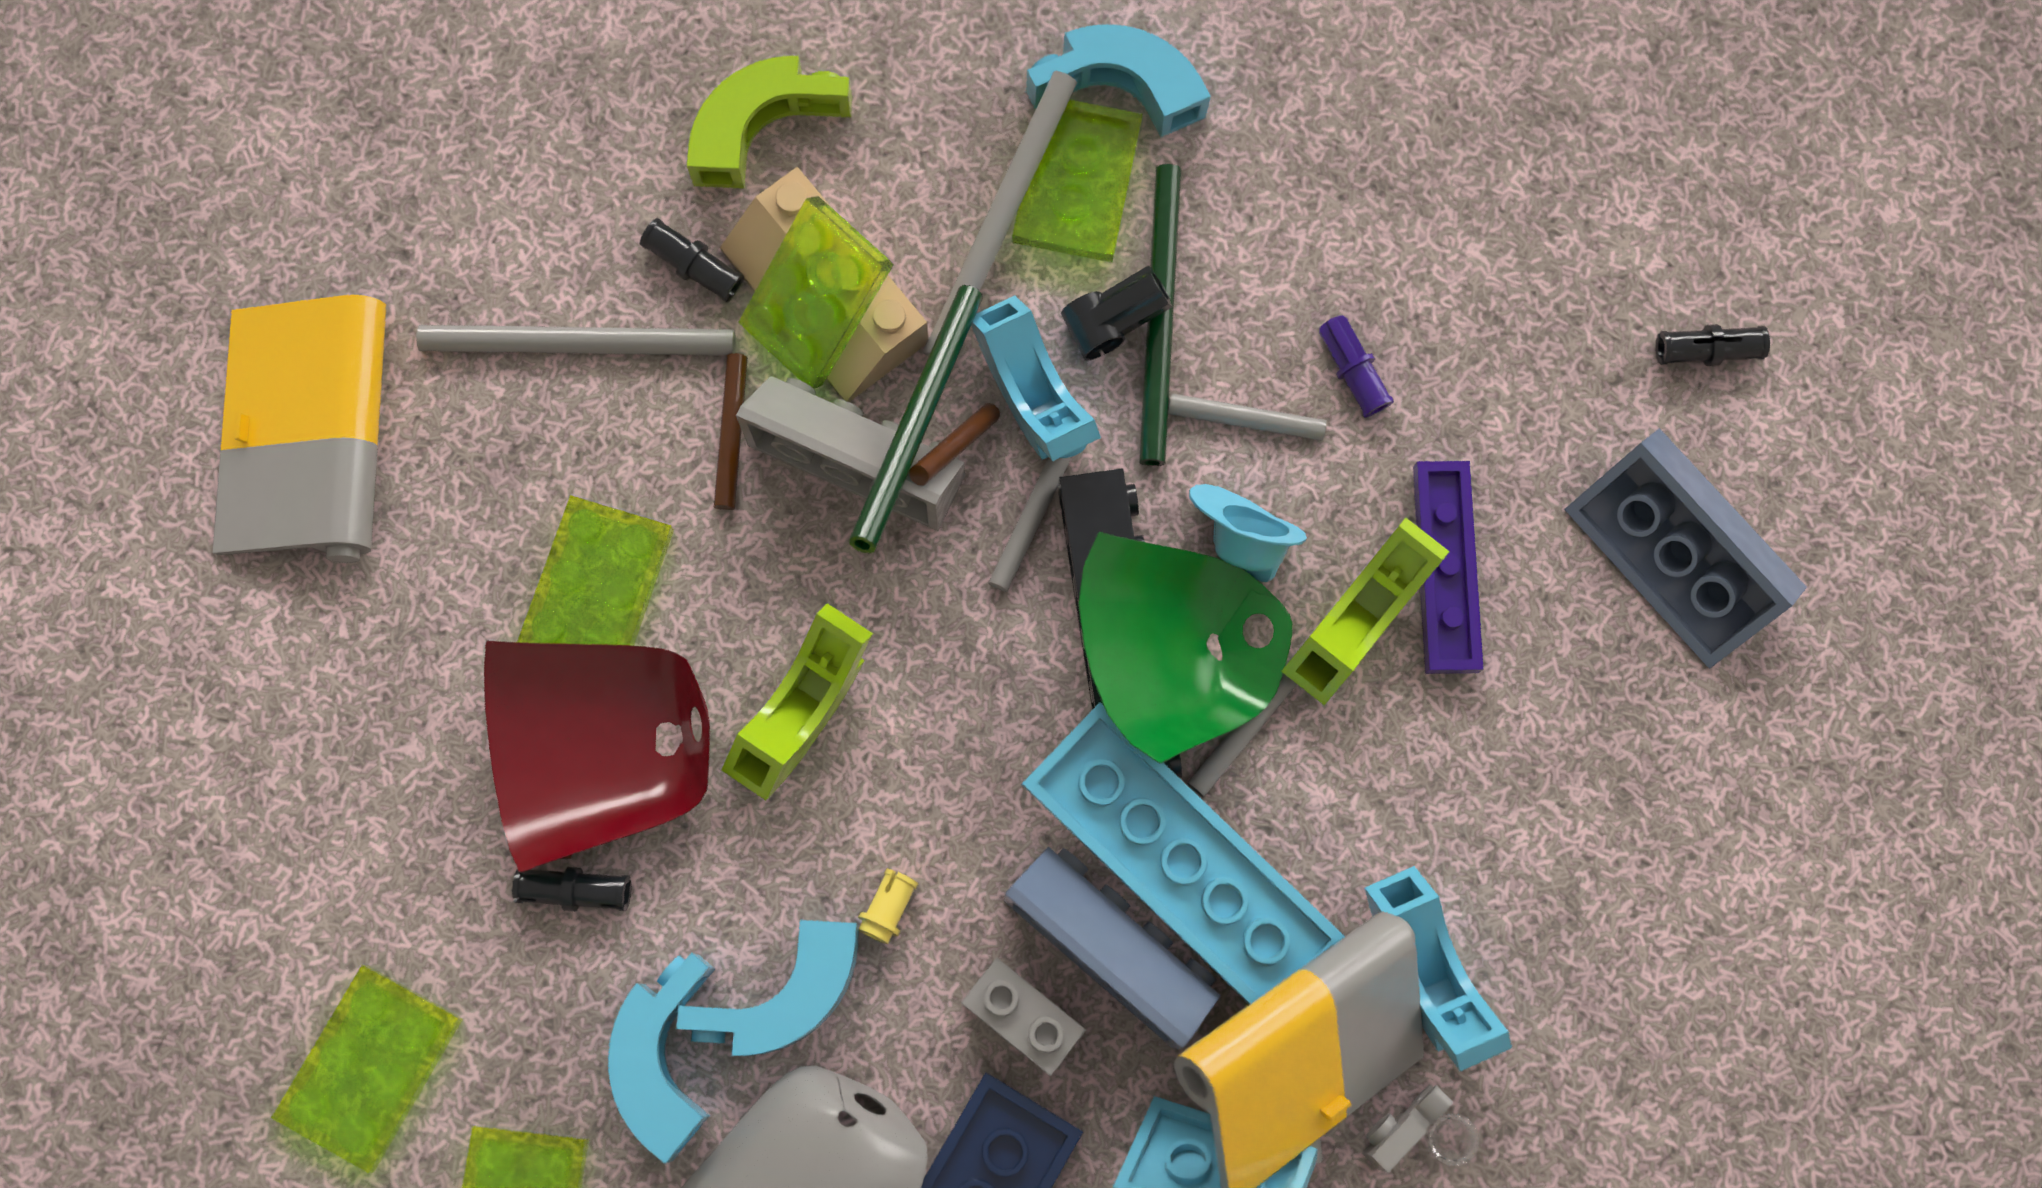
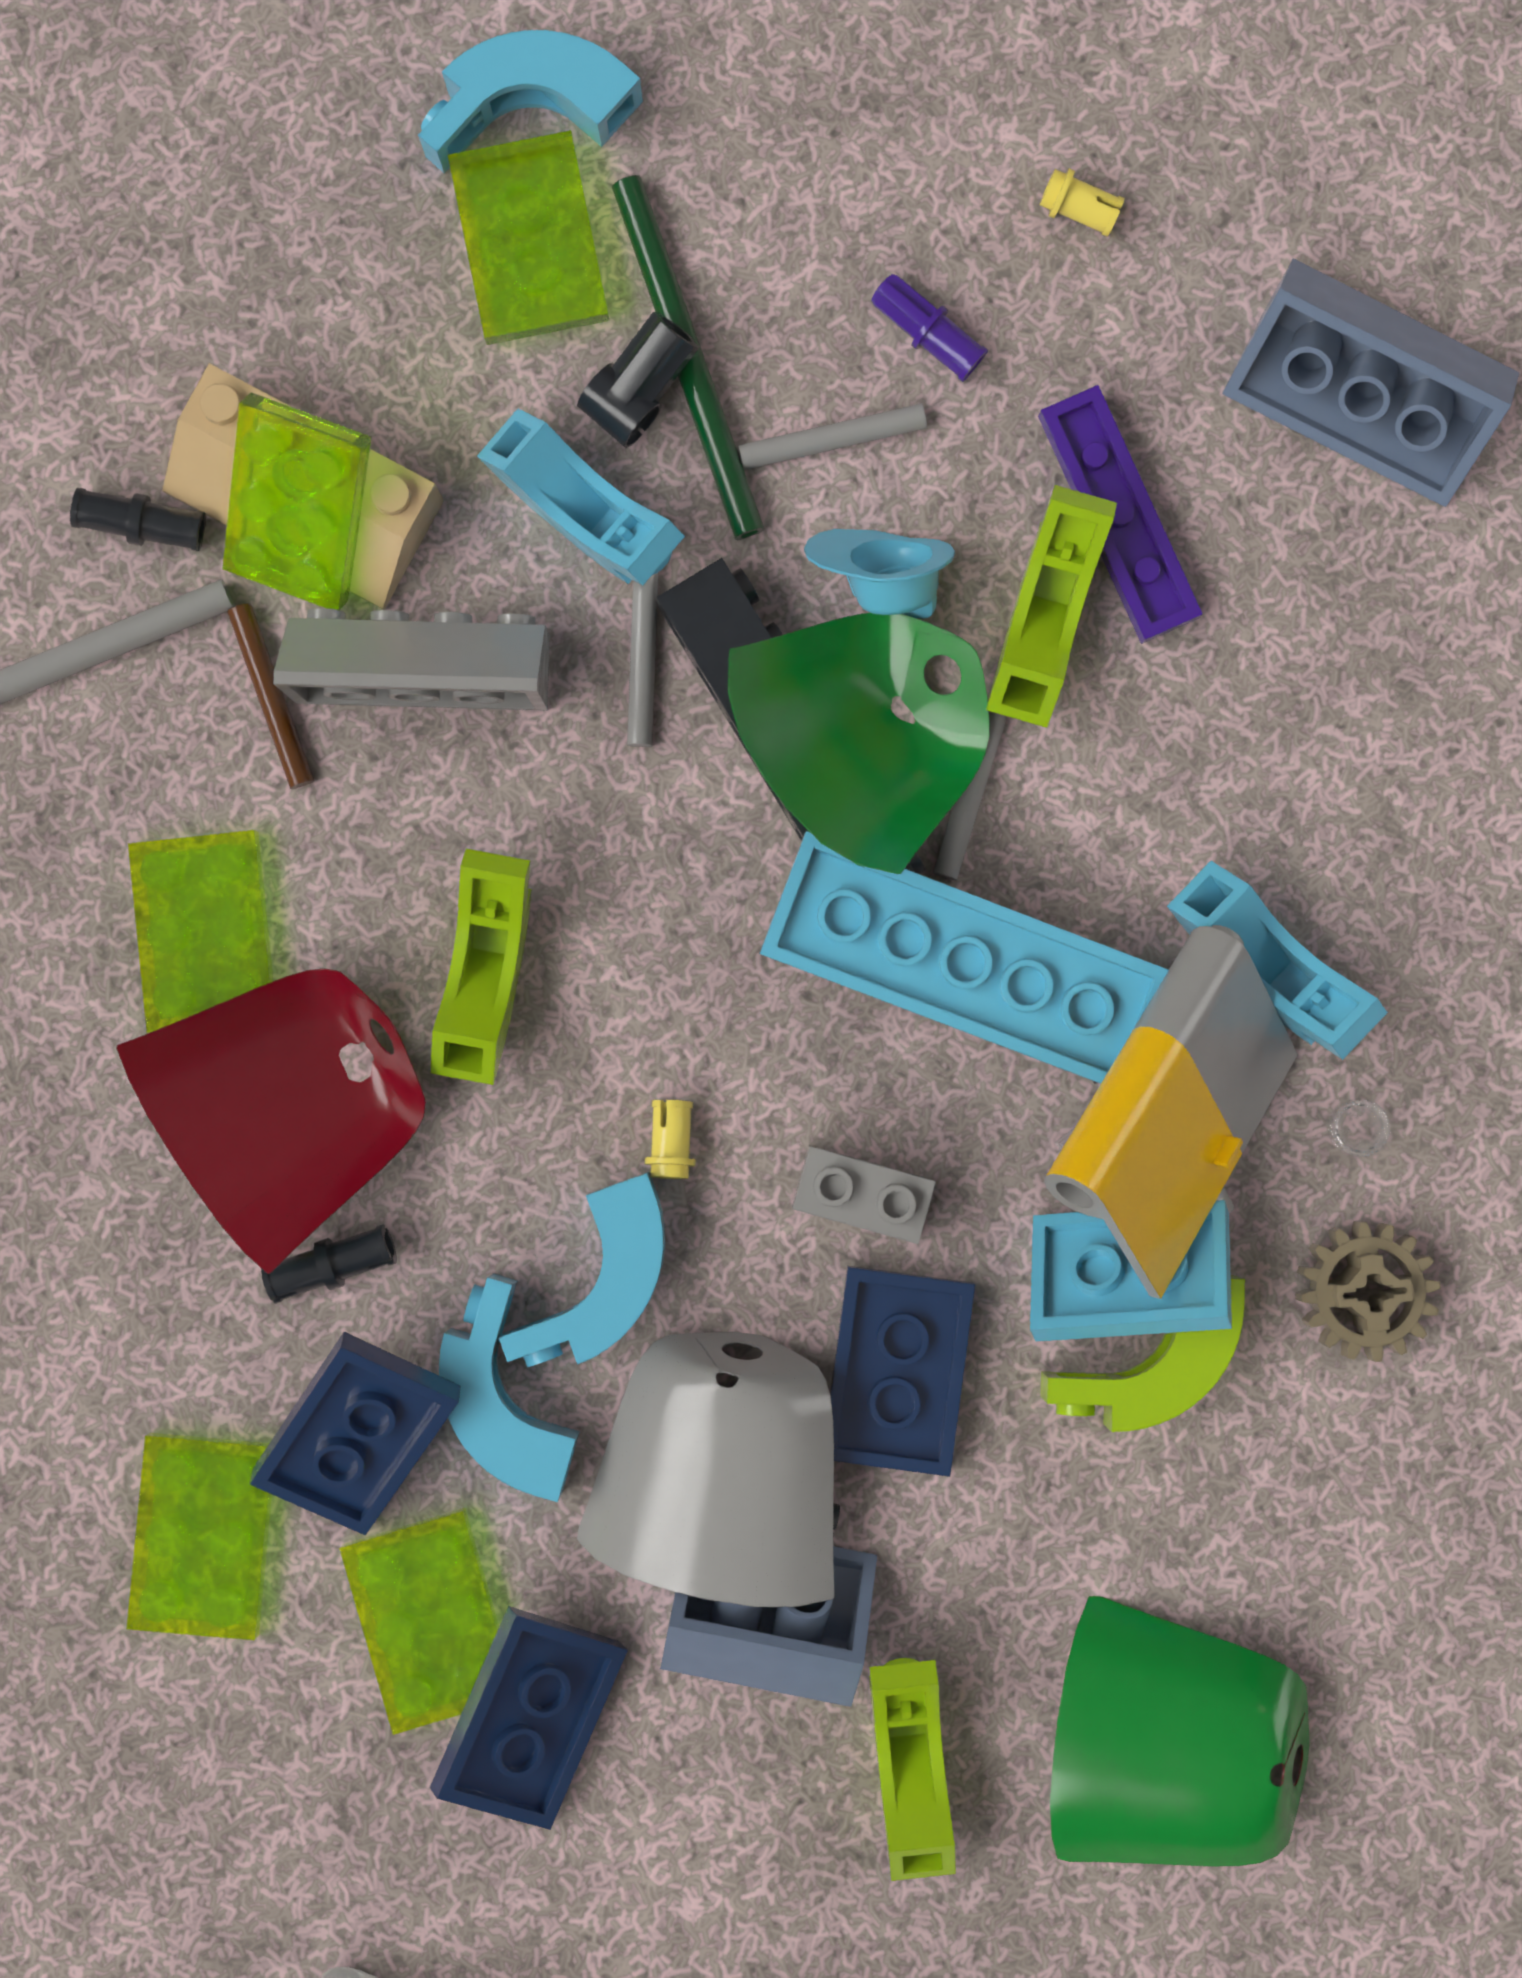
camera: 20 degrees left, 10 degrees up
(528, 1034) = (355, 1434): none -> dark blue plate
(749, 103) = (117, 308): lime arch -> none
(915, 420) = (473, 602): dark green piece -> none
(954, 444) = (525, 610): reddish brown bar -> none
(1011, 191) = (462, 319): light grey piece -> none
(1112, 947) = (928, 1082): sand blue slope -> none
(1395, 1137) = (1301, 1151): light grey plate -> none
(1510, 322) = (1081, 202): none -> light yellow pin
(1712, 345) = (1316, 133): black pin -> none

